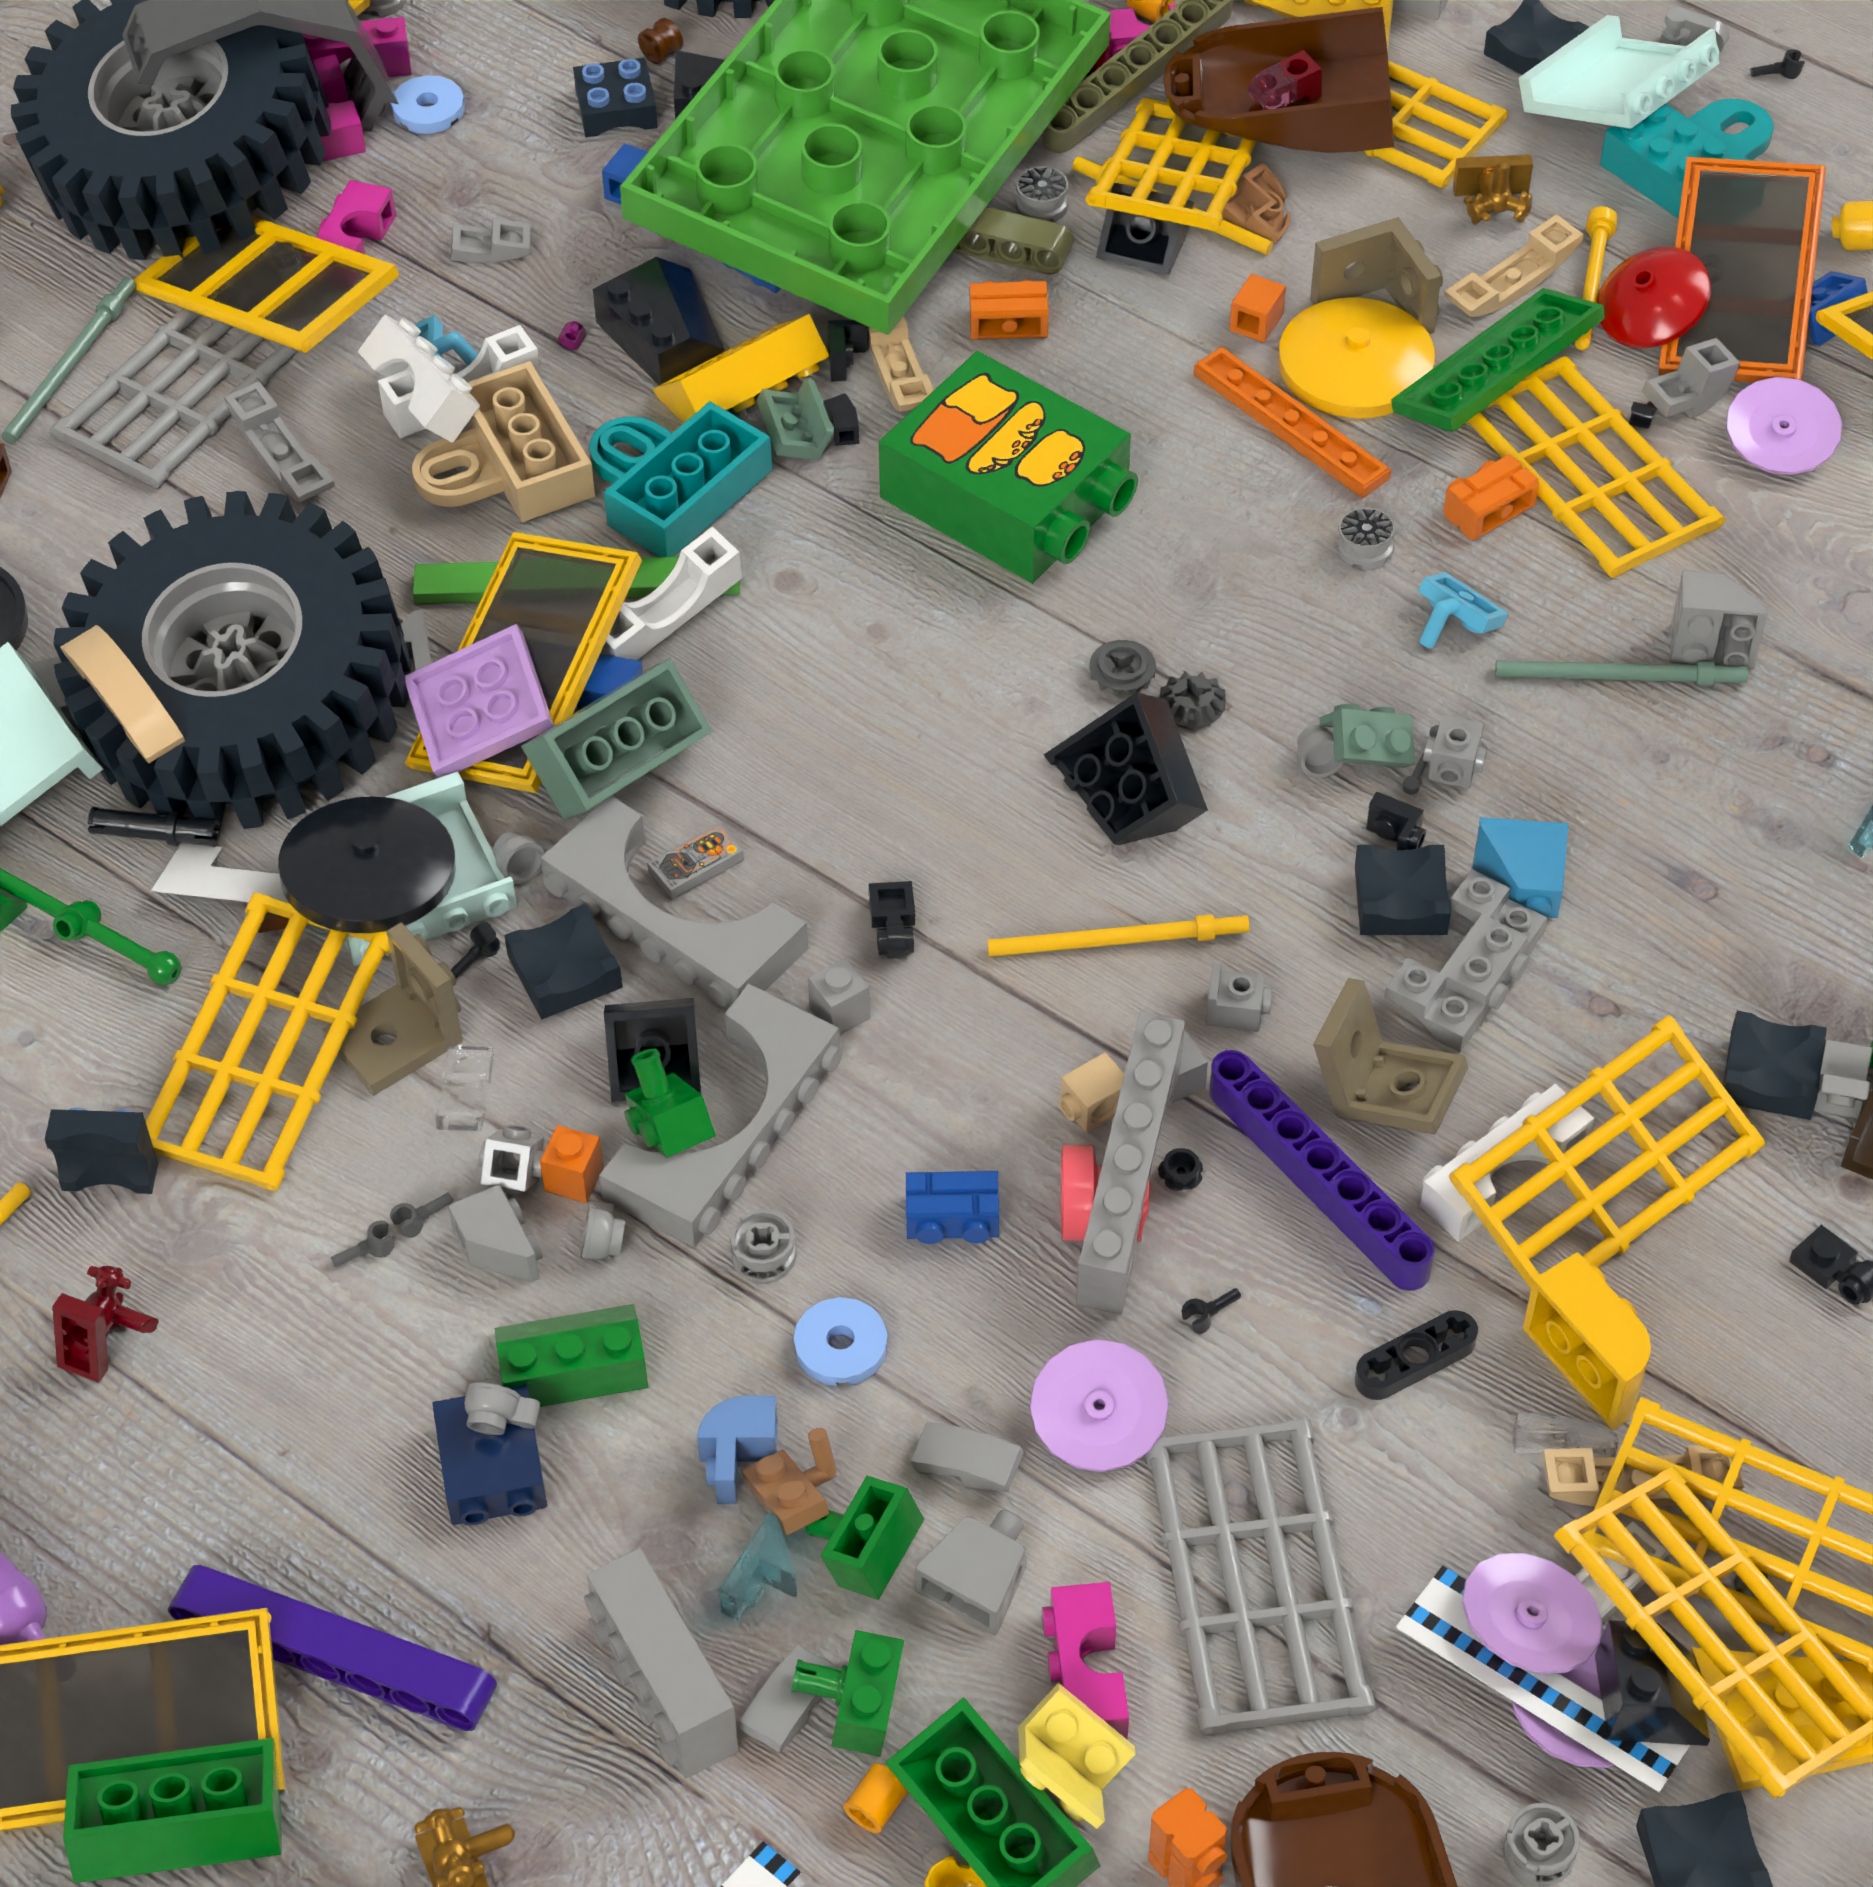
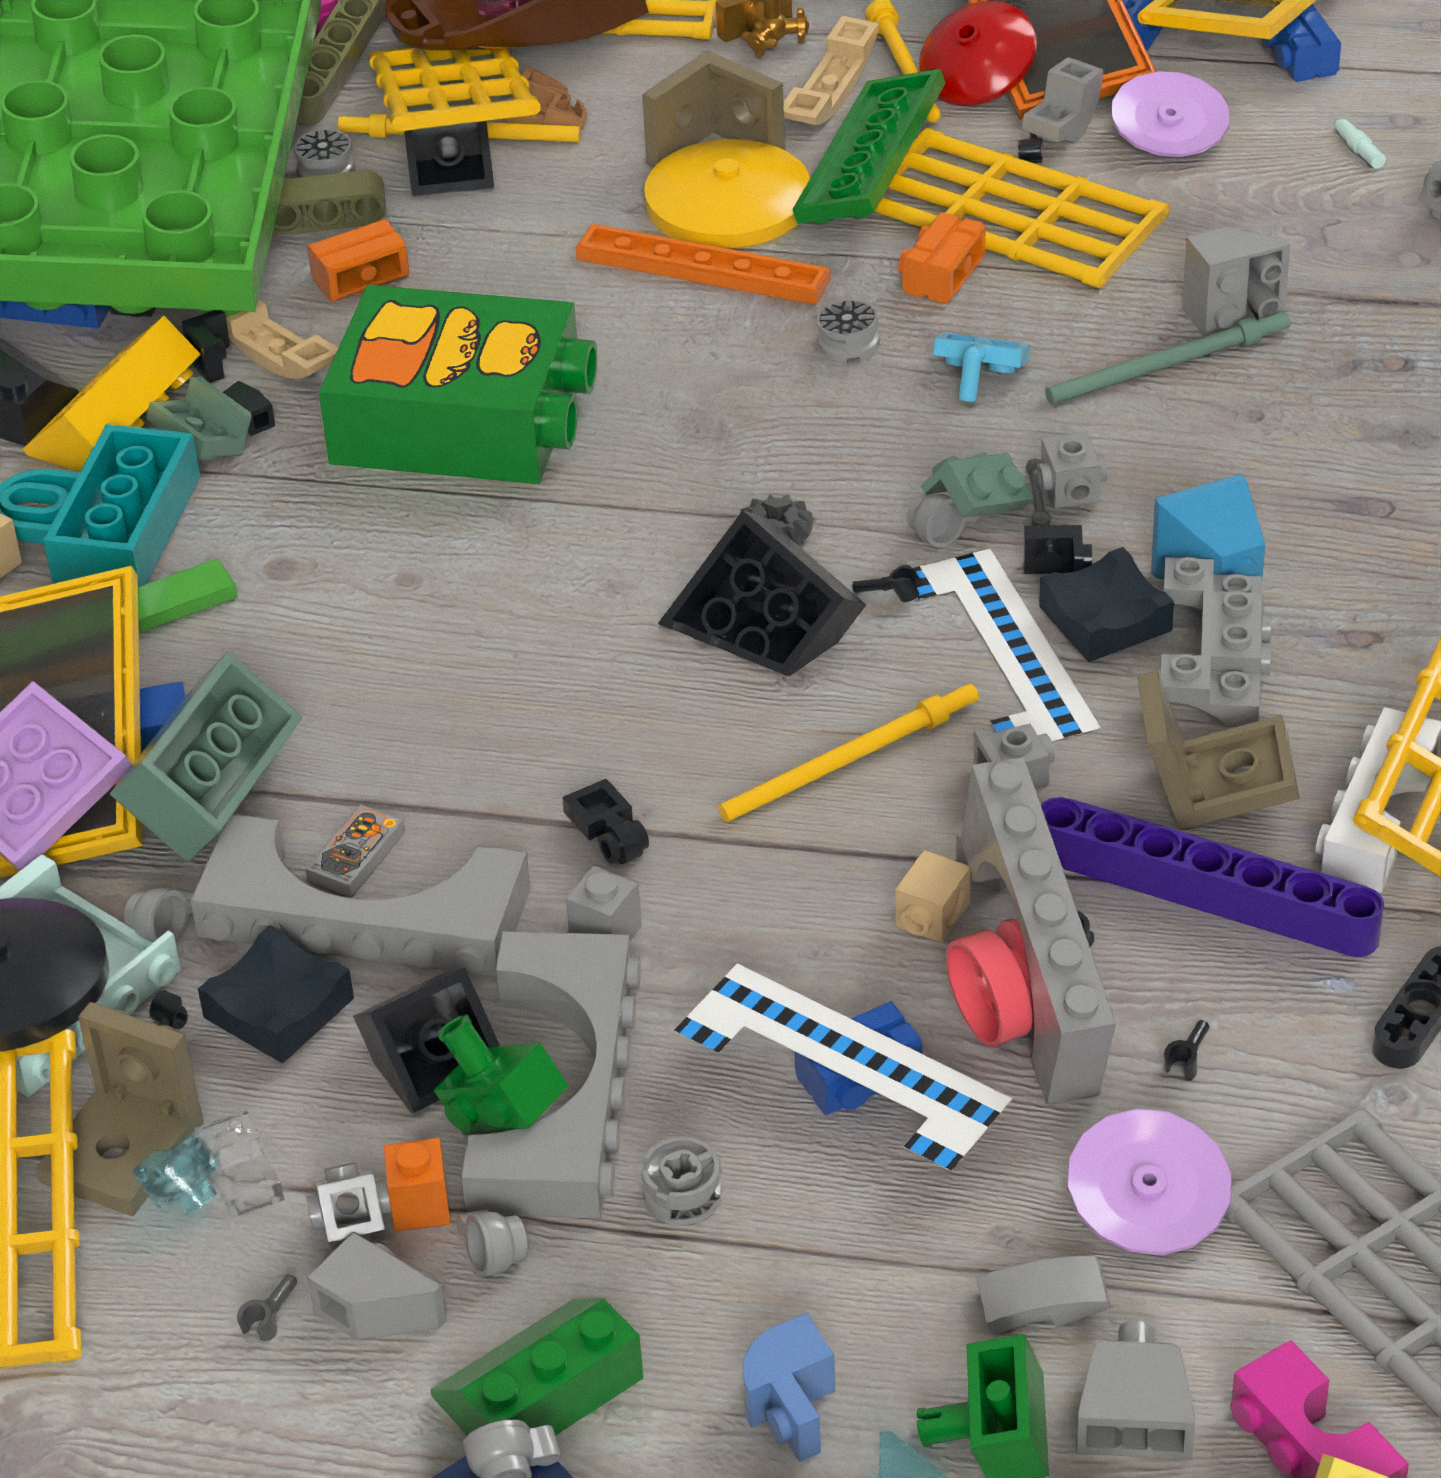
camera: 25 degrees left, 10 degrees down
(373, 1244) = (233, 1363): dark grey hand -> none
(413, 1082) = (180, 1175): none -> clear light blue piece
(699, 577) = (195, 585): white arch -> none
(788, 1490) = (871, 1405): medium nougat plate -> none
(837, 1318) = (821, 1215): light blue tile -> none
(943, 1201) = (953, 1103): none -> white sticker
(1122, 654) = (671, 513): dark grey gear -> none
(1254, 796) = (901, 580): none -> black hand
(1257, 308) = (606, 180): orange brick -> none
(1316, 891) = (1016, 643): none -> white sticker

